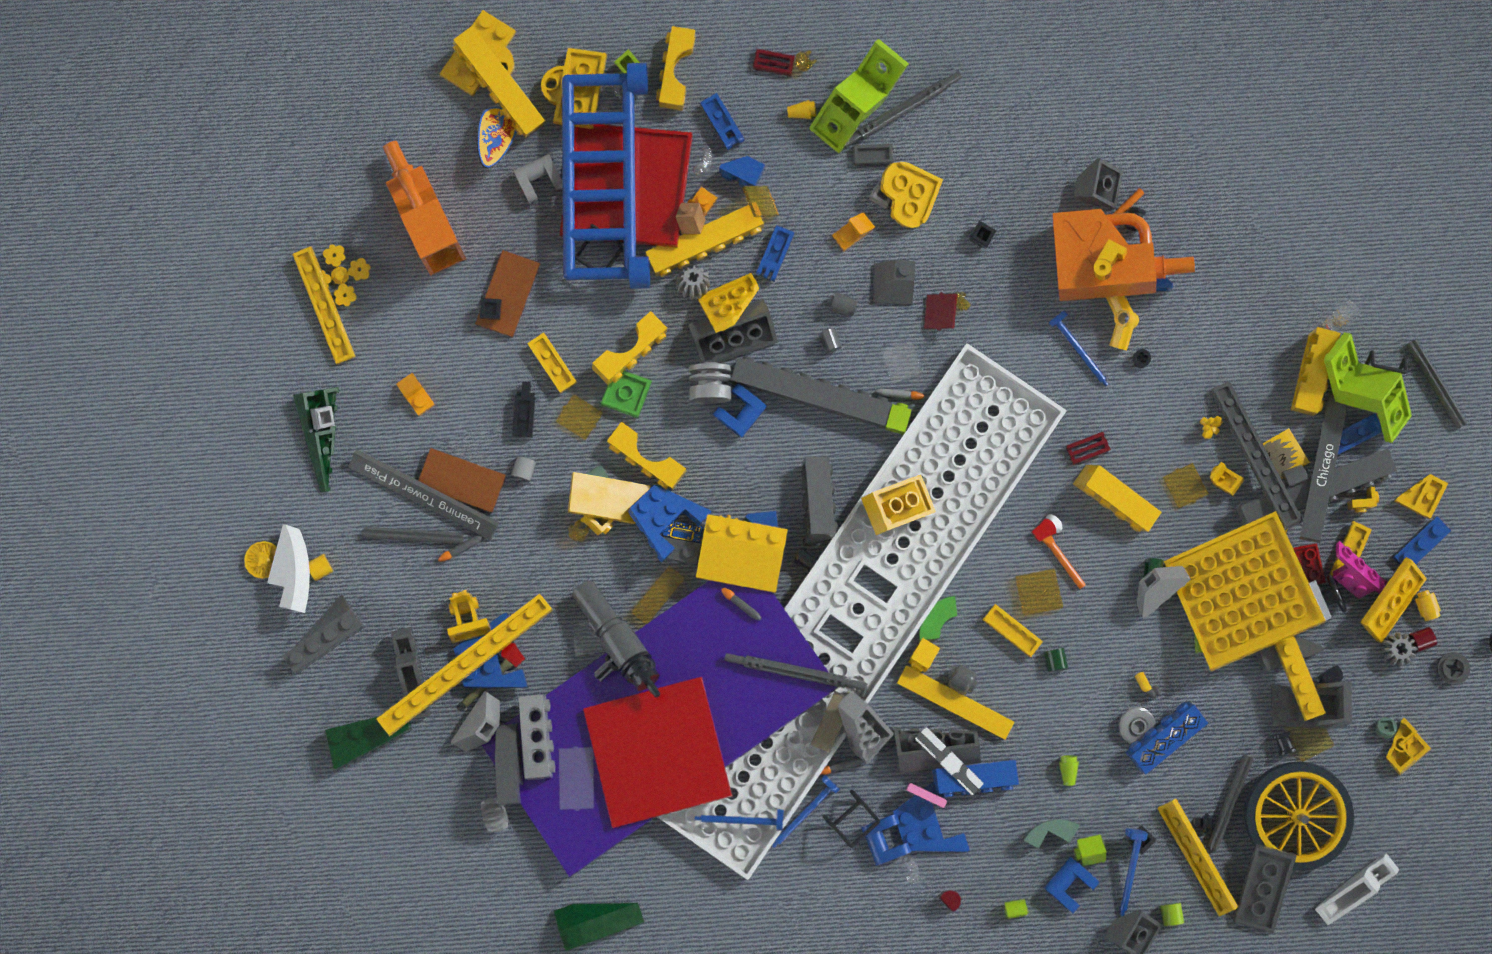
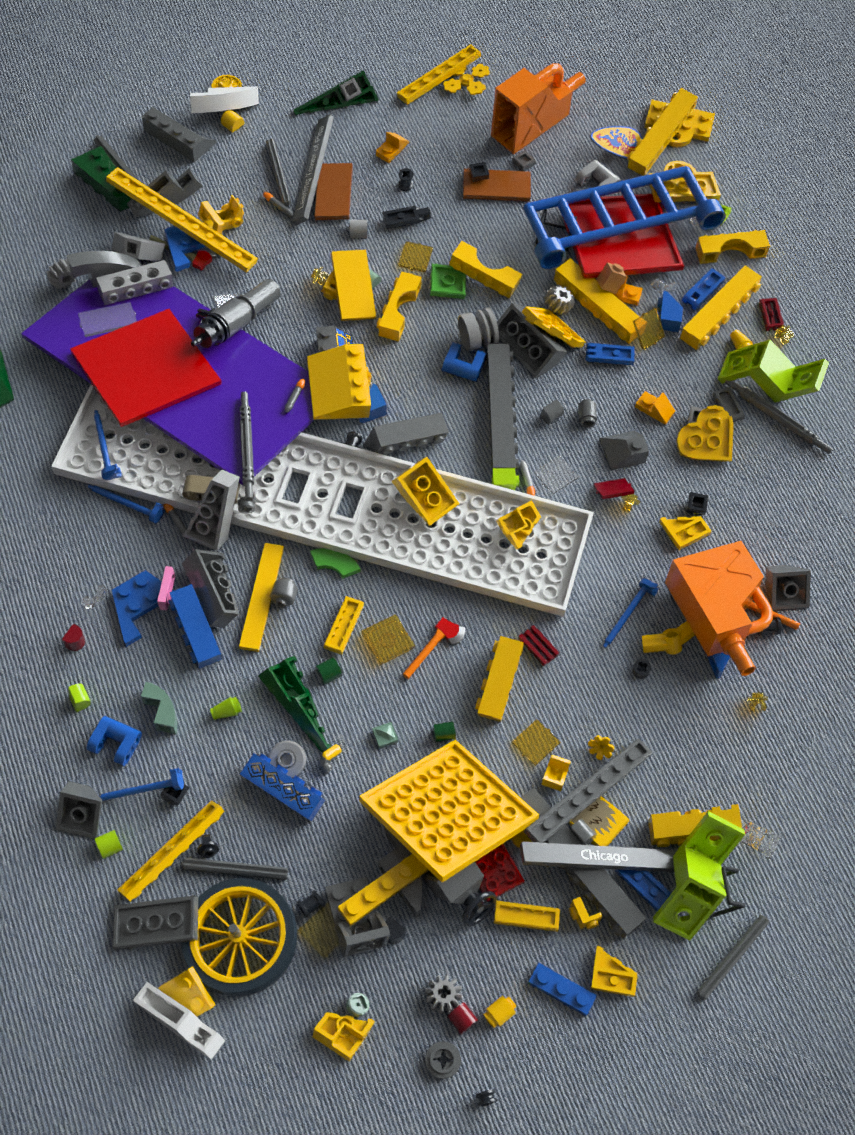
camera: 70 degrees right, 20 degrees down
(344, 715) = (117, 161): none -> dark grey axle
(478, 394) = (405, 182): none -> black bush
(482, 251) = (524, 161): none -> dark grey tile
(552, 363) = (452, 225): yellow plate -> none
(658, 510) = (354, 320): blue wing -> none
(658, 595) = (286, 346): clear yellow tile -> none
(753, 113) = (720, 308): none -> yellow brick
(859, 801) = (136, 536): black piece -> none
(878, 844) = (106, 568): blue connector -> none
(923, 655) = (296, 555): yellow brick -> none
(949, 761) = (201, 593): sticker -> none
(960, 422) = (519, 523): none -> yellow slope
(1007, 258) = (685, 530): none -> yellow wing
(1064, 704) = (287, 687): none -> dark green wedge
(1090, 850) = (152, 746): lime brick -> none
(1107, 259) = (718, 586): yellow leg -> none
(1138, 626) = (385, 735): none -> sand green tile
(1159, 587) = (427, 735): light grey slope -> none
(1205, 262) = (757, 697): none -> clear yellow plate
(1334, 874) = (189, 992): none -> yellow wing
(1355, 574) = (505, 923): dark pink bracket -> none
(1393, 600) = (492, 969): yellow tile -> none

